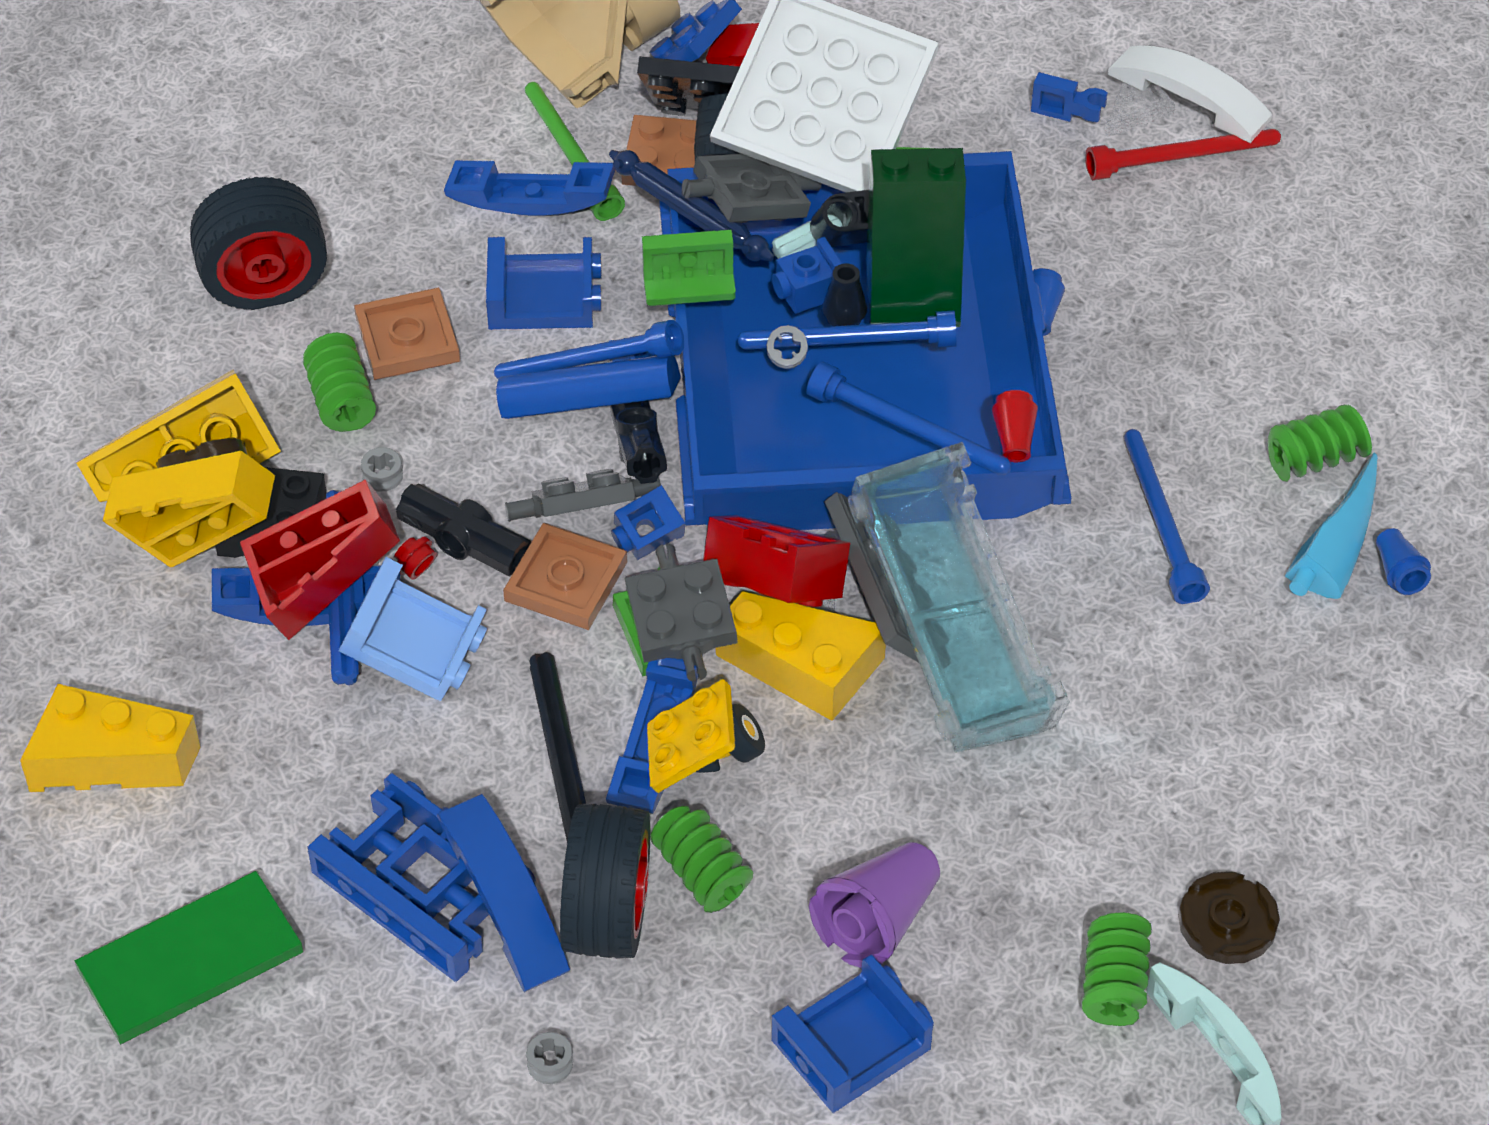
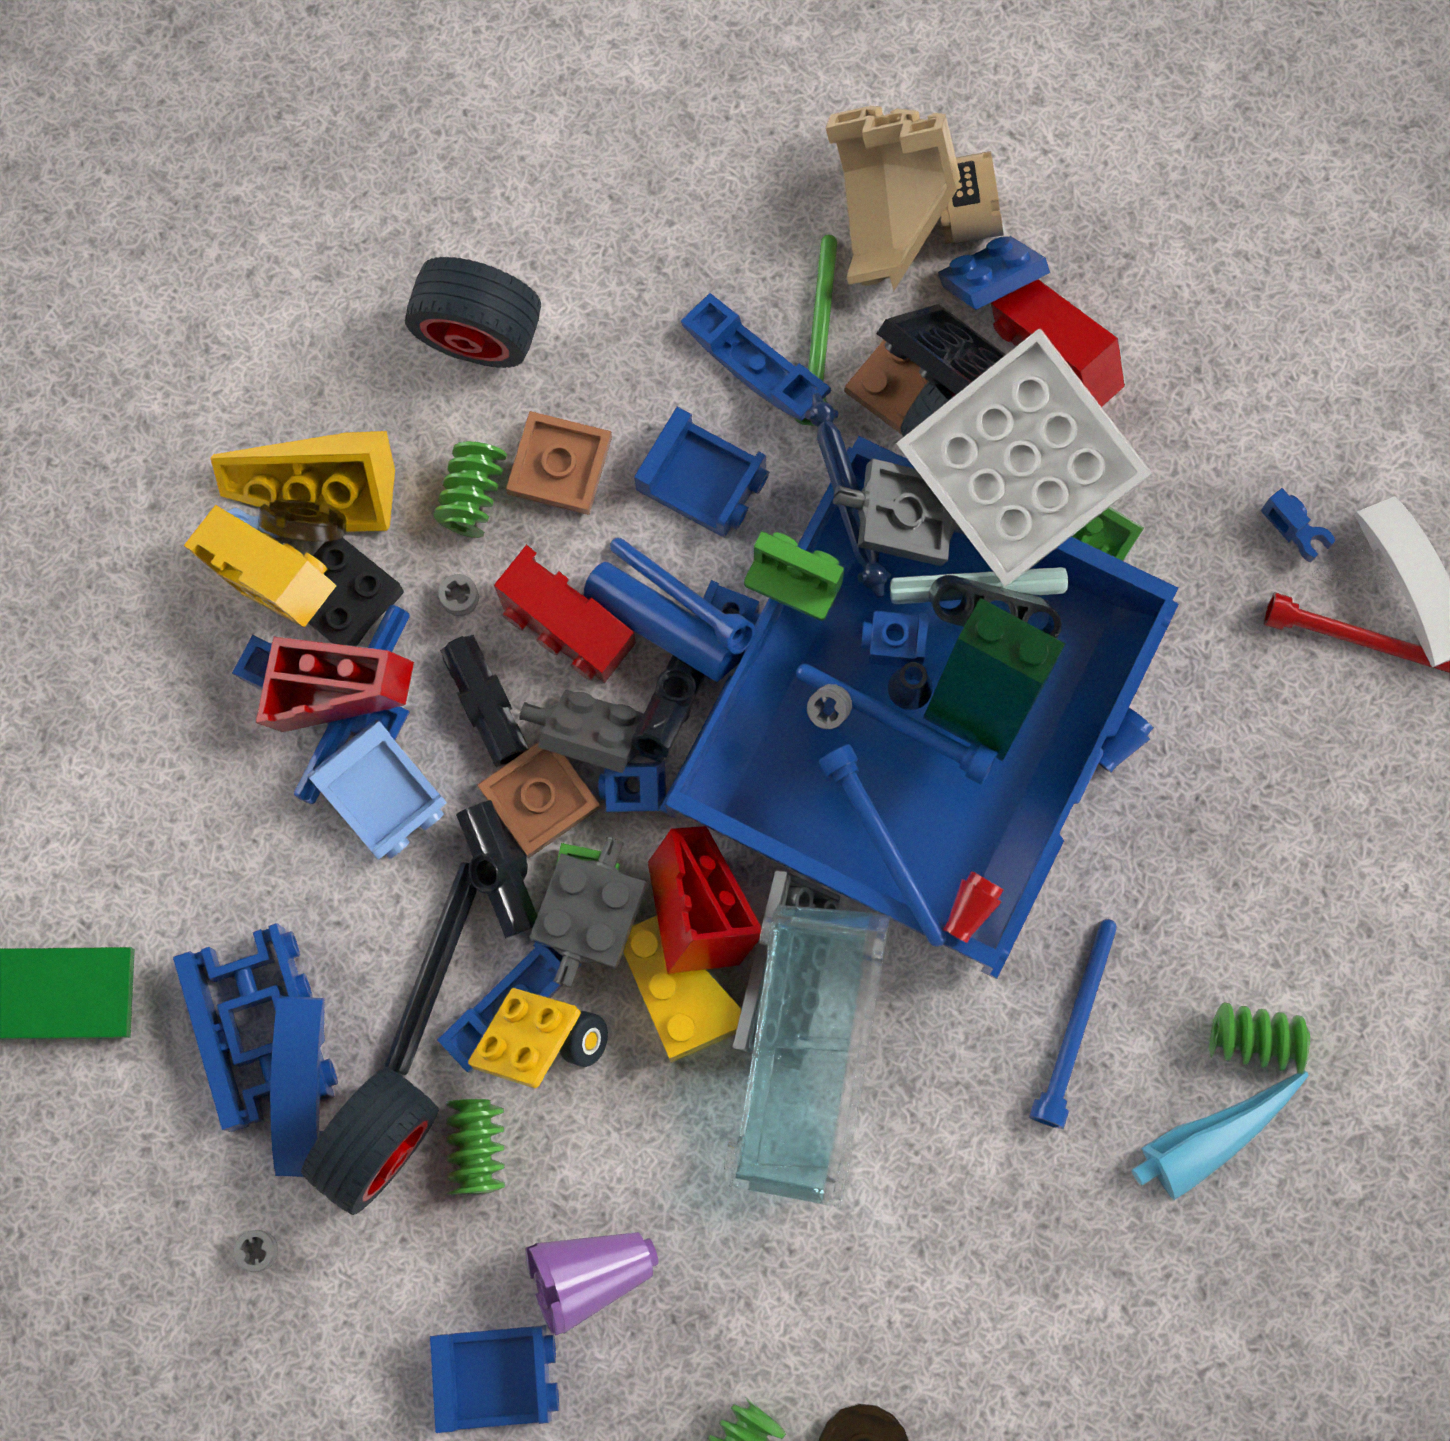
camera: 35 degrees right, 25 degrees up
(108, 741) = (85, 752): yellow wedge -> none
(415, 556) = (429, 706): red plate -> none
(492, 431) = (563, 617): none -> red wedge
(546, 626) = (497, 868): none -> black piece
(1403, 564) = (1249, 1202): blue cone -> none

